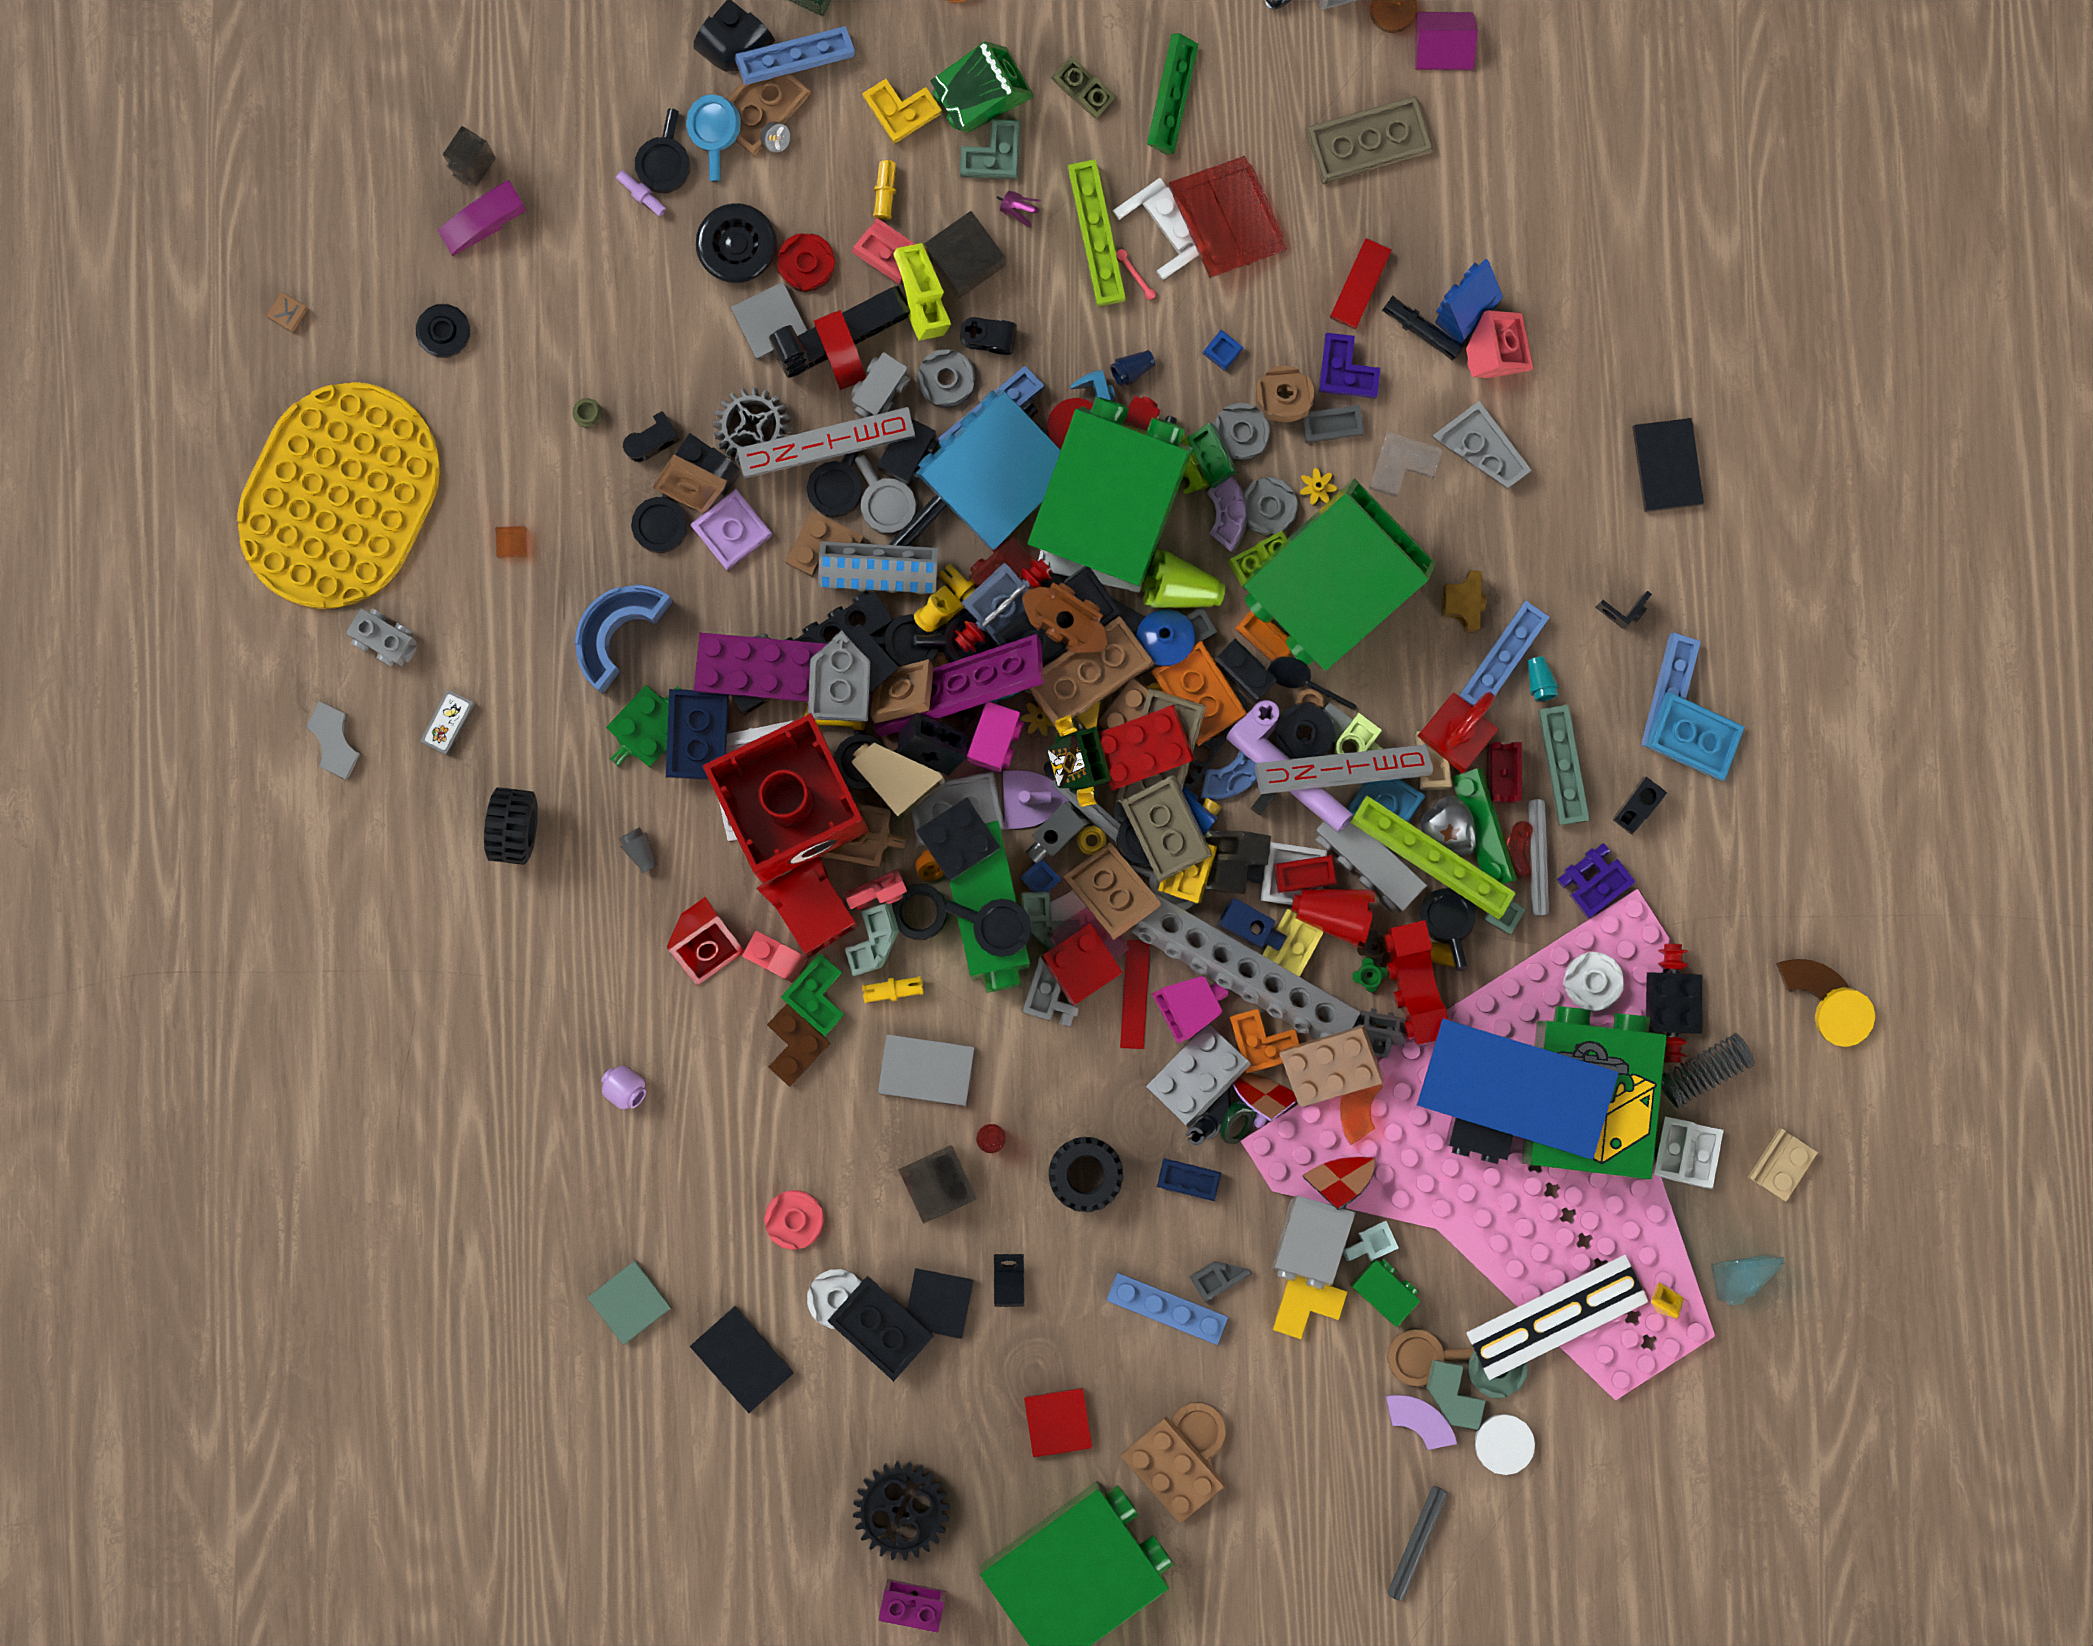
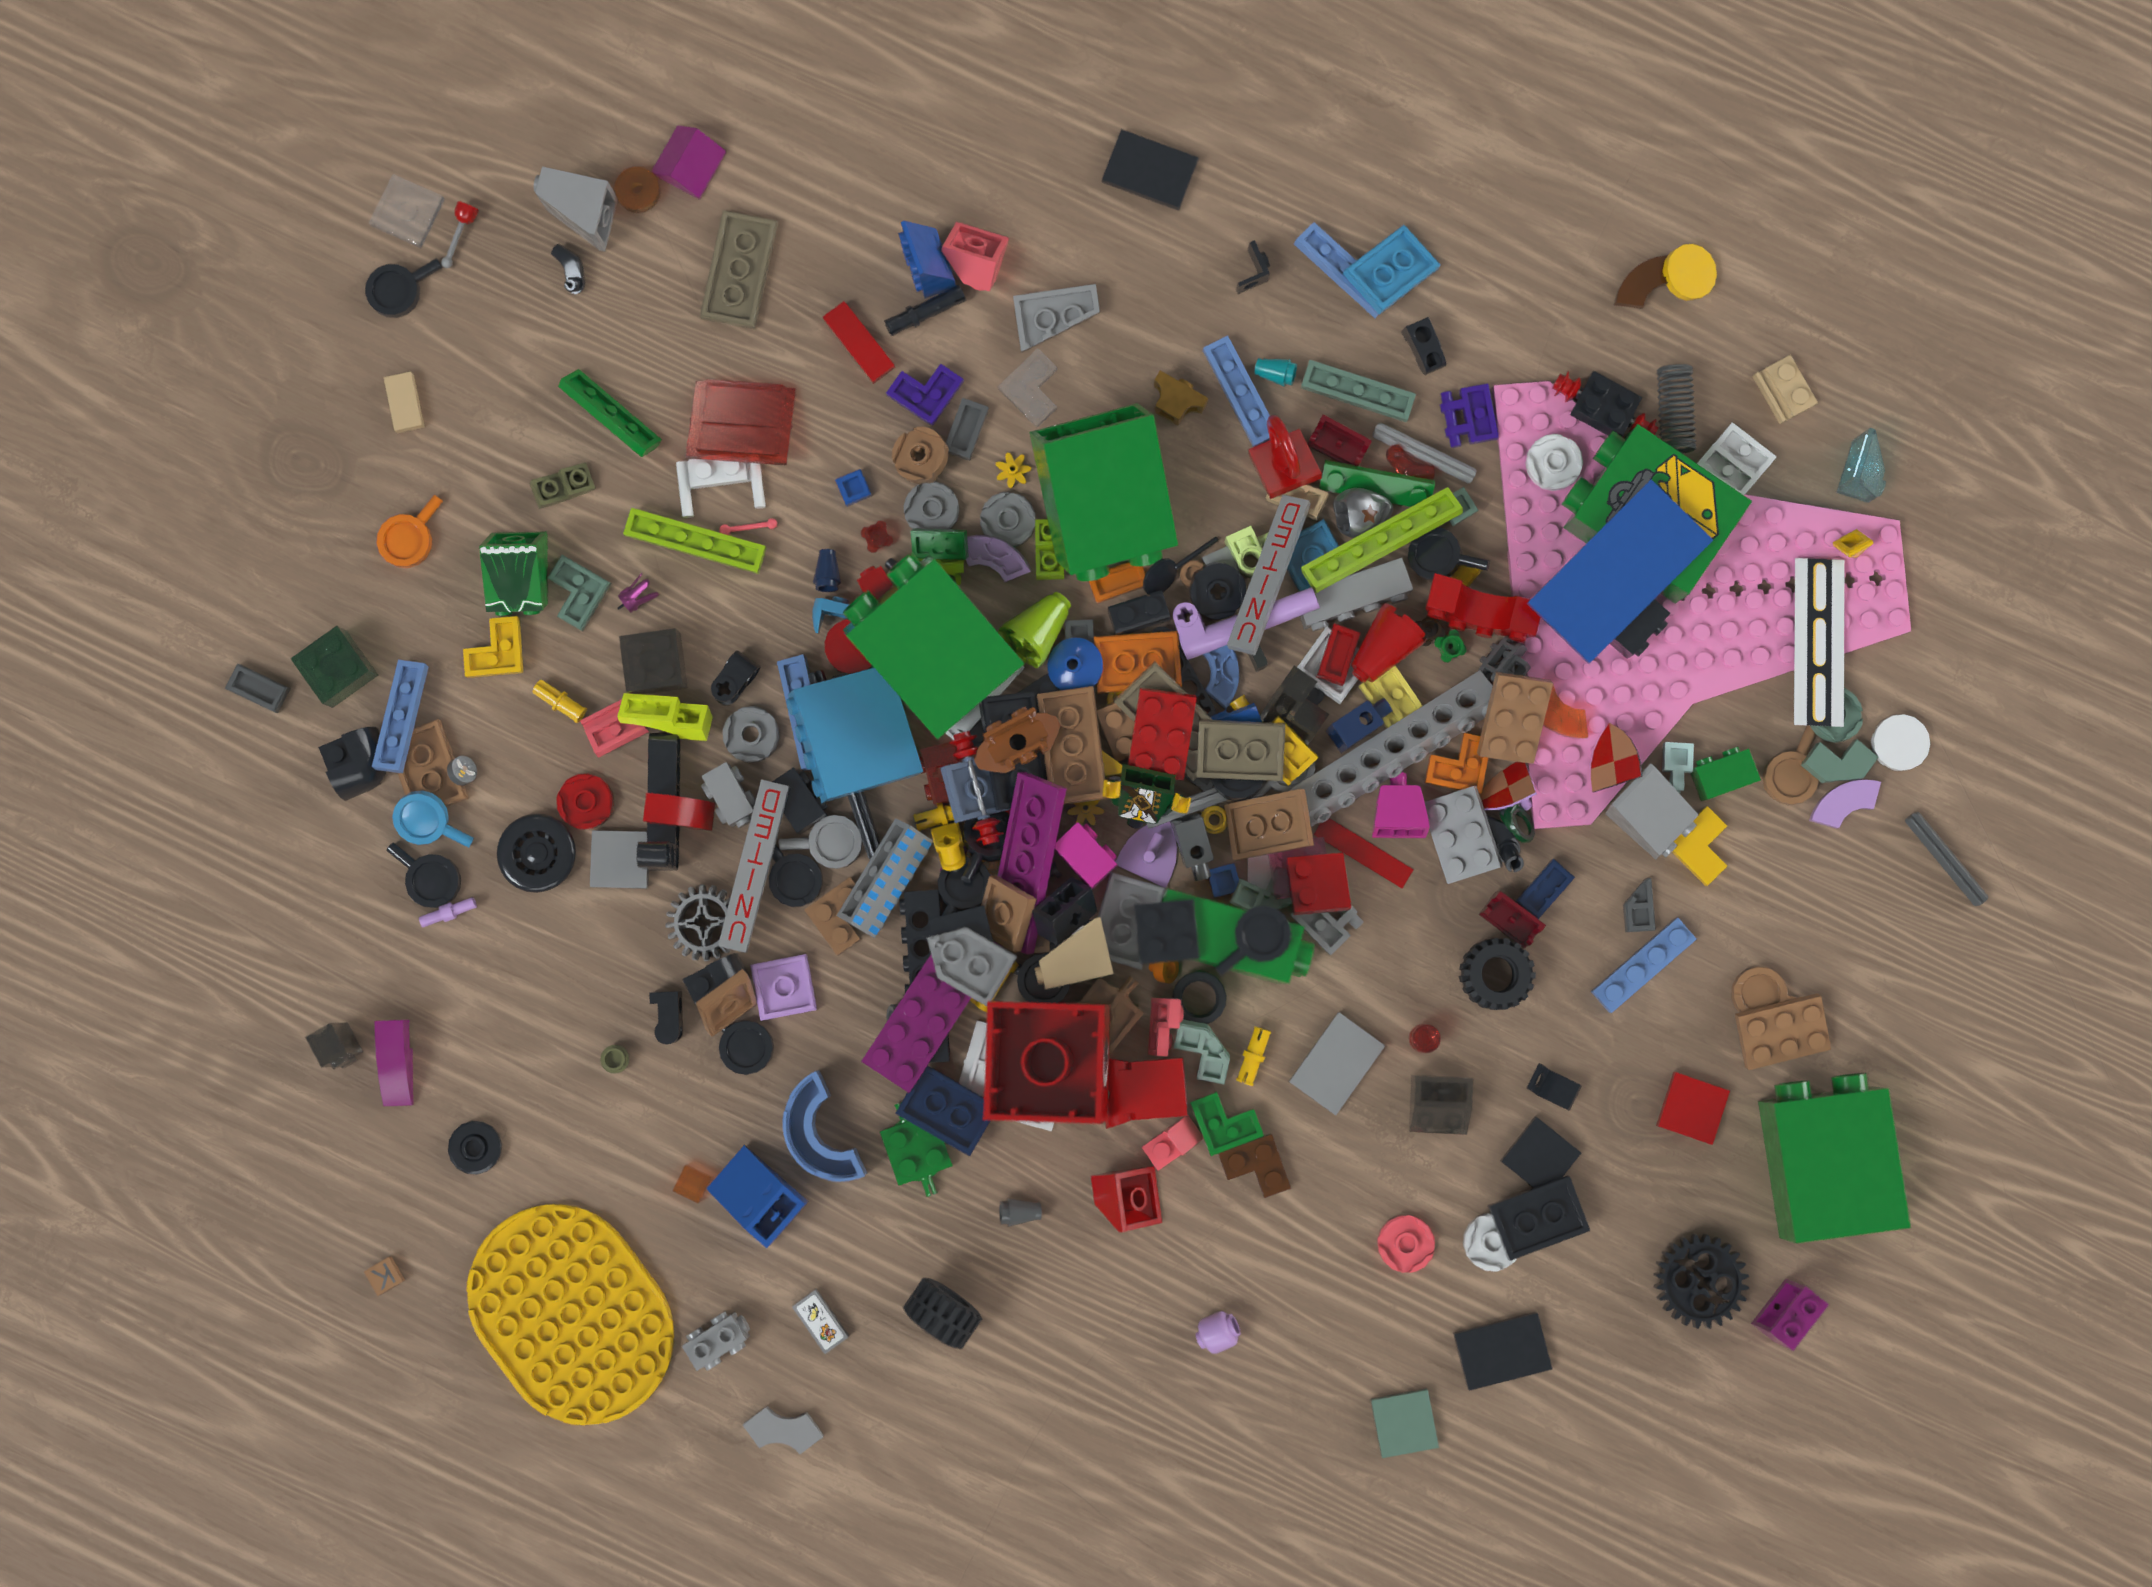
camera: 55 degrees left, 0 degrees up
(529, 605) = (756, 1196): none -> blue slope
(1143, 1163) = (1511, 919): none -> dark red hinge
(1189, 387) = (880, 529): none -> clear red plate

